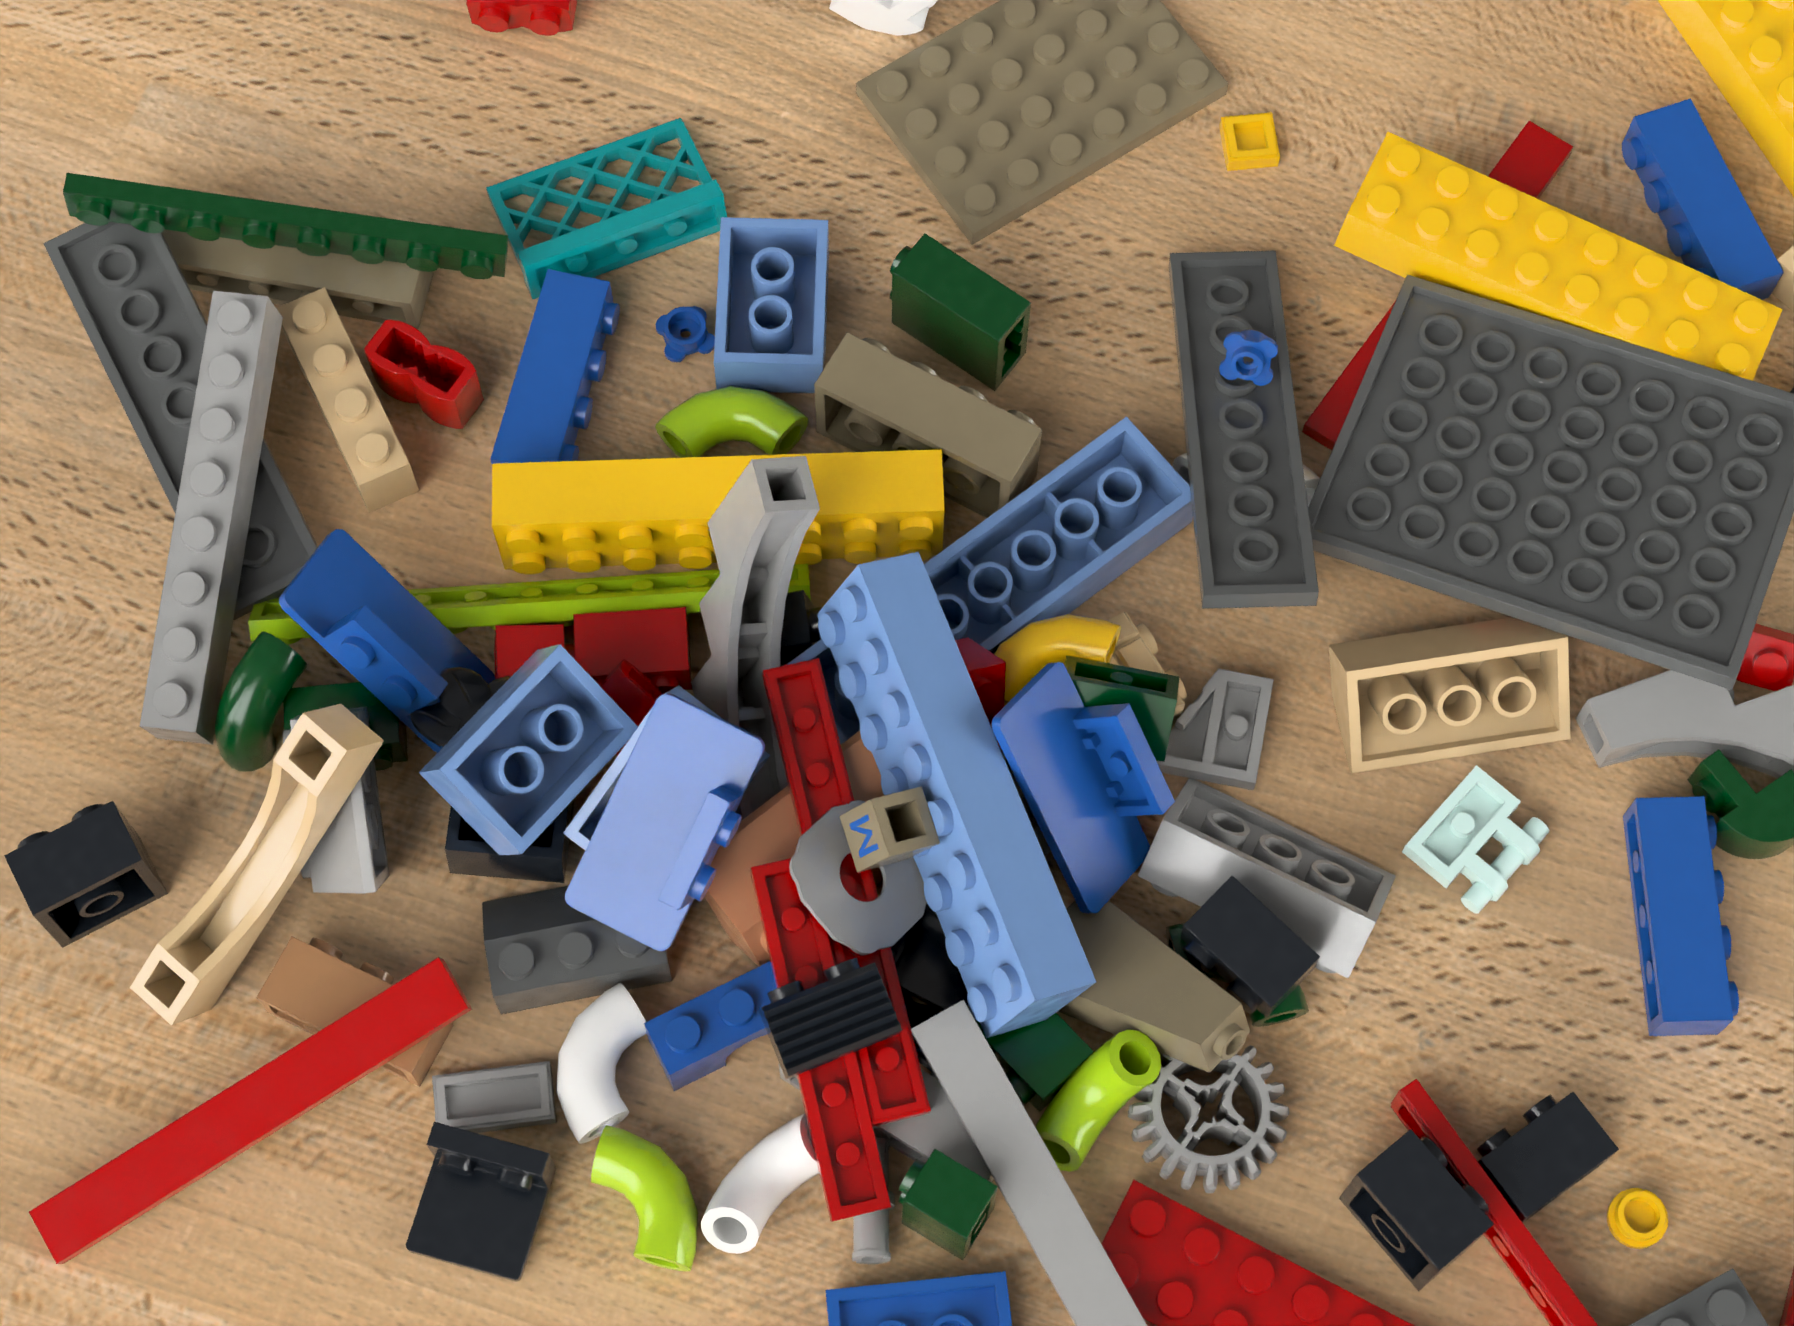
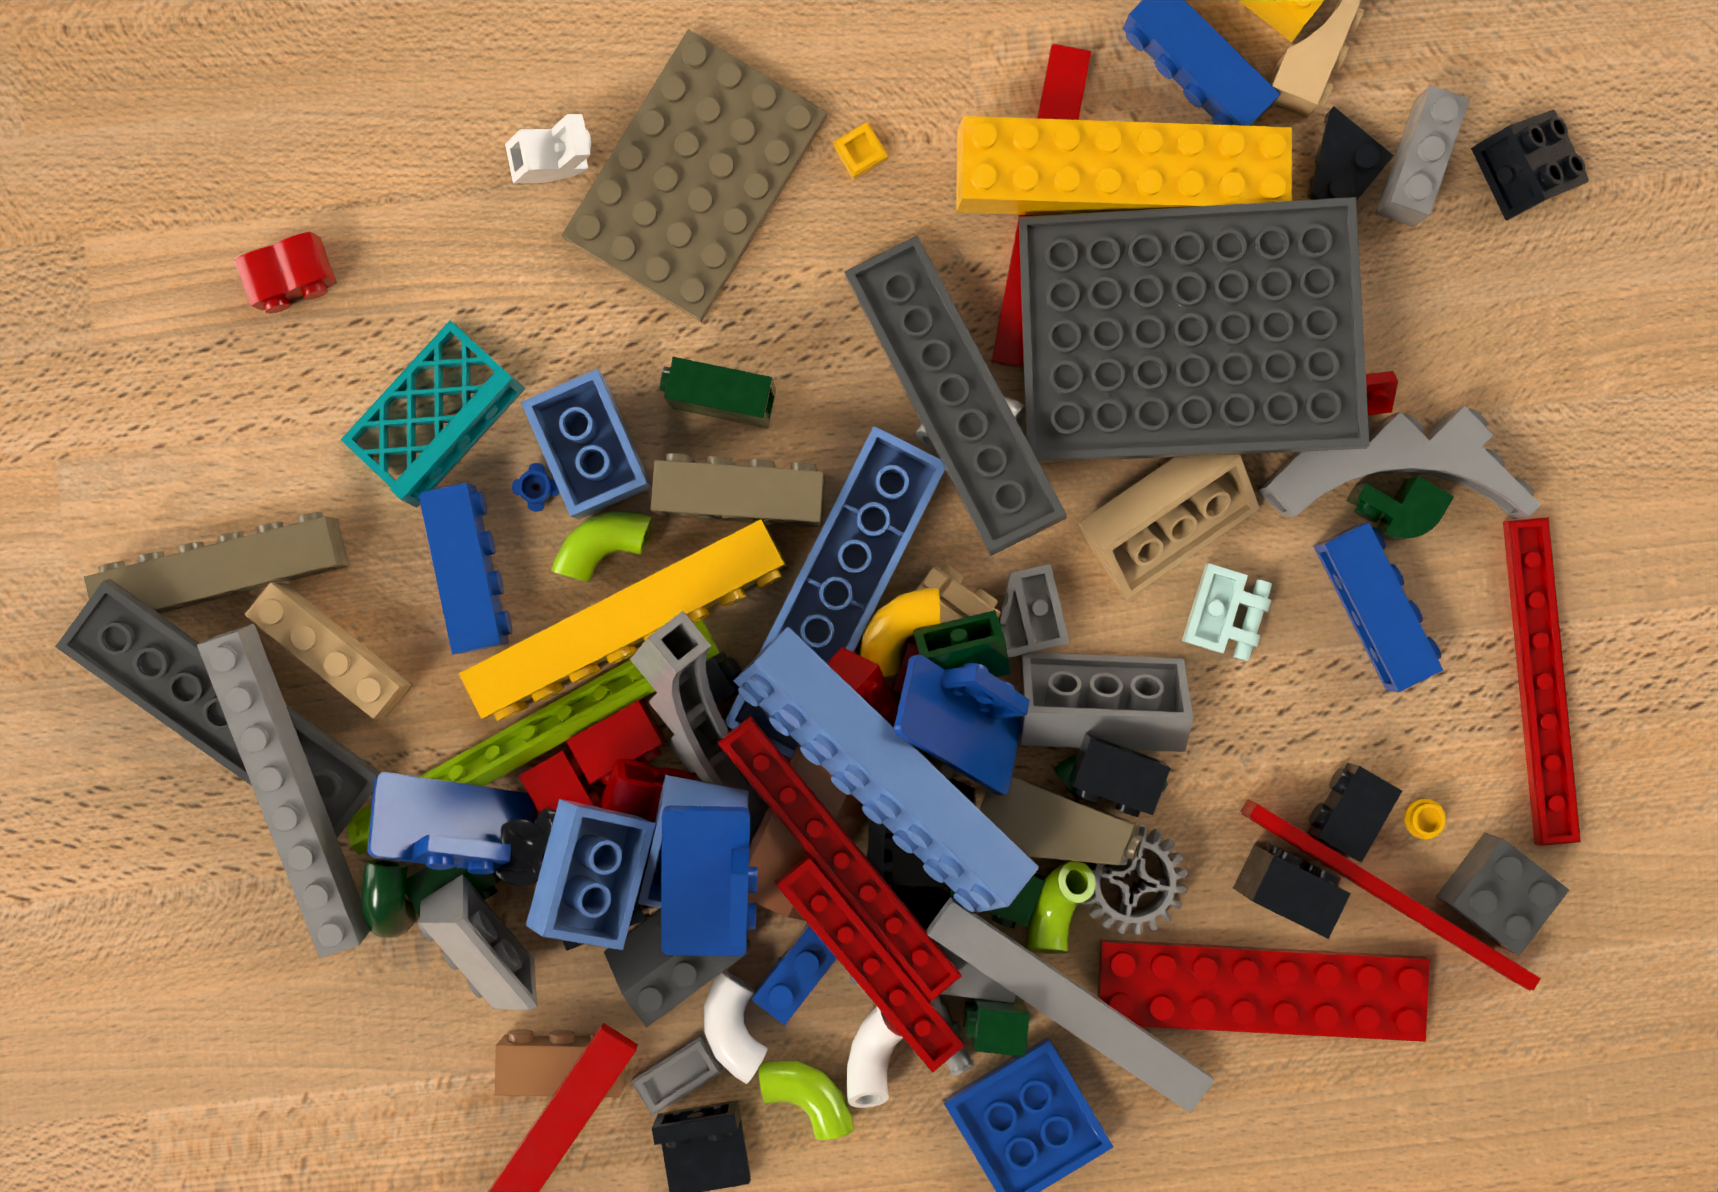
camera: 25 degrees left, 20 degrees up
(85, 873) = (338, 1067): black brick -> none
(273, 223) = (204, 566): dark green plate -> none
(306, 791) = (459, 989): tan arch -> none
(424, 374) = (370, 609): red brick -> none
(829, 1018) = (874, 963): black brick -> none
(852, 922) = (817, 859): light grey piece -> none
(889, 829) = (857, 824): dark tan brick -> none
(1253, 345) = (940, 344): blue plate -> none

